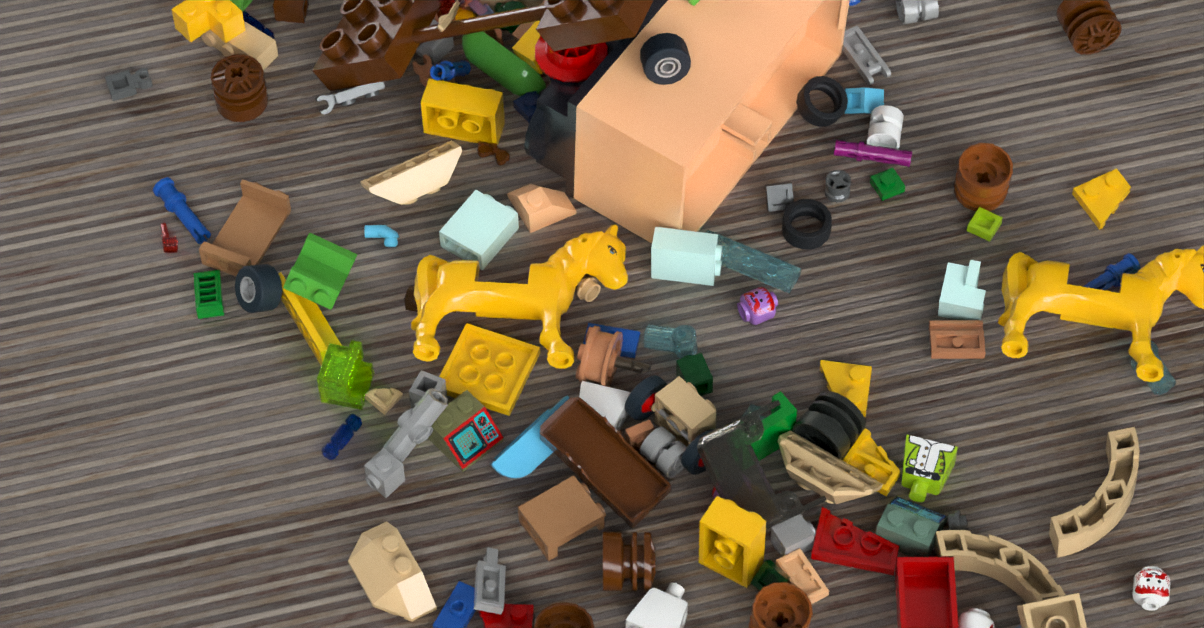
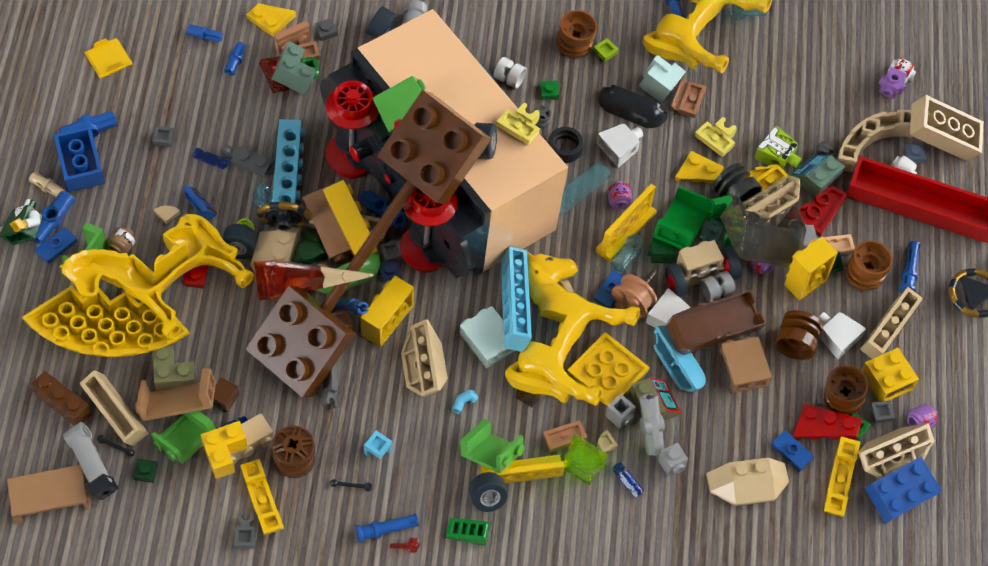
camera: 75 degrees left, 5 degrees up
(175, 86) = (261, 497): none -> yellow slope
(231, 179) = (367, 486): none -> black hinge
(248, 229) = (422, 489): medium nougat panel -> none
(281, 163) = (377, 445): none -> medium azure panel
(376, 350) = (561, 436): none -> nougat plate
(486, 149) = (425, 305): reddish brown piece -> none
(490, 583) = (783, 422): light grey hinge -> none
(532, 229) = (515, 299): none -> medium azure brick
(540, 206) = (479, 294): light nougat slope -> none
(637, 434) = (697, 295): nougat plate -> none
(685, 256) = (570, 219): light aqua brick -> none
(713, 331) = (629, 223): none -> yellow fence
(719, 92) = (520, 124): none -> light yellow plate
(743, 381) = (683, 218): none -> green panel
(839, 282) = (619, 143): none -> white torso
(873, 153) = (519, 92): magenta pin -> none
(906, 282) = (631, 107): none -> black brick
(912, 389) = (717, 136): none -> light yellow plate
(1094, 520) = (837, 62): tan brick -> none
(1117, 578) = (892, 83): none -> medium lavender brick

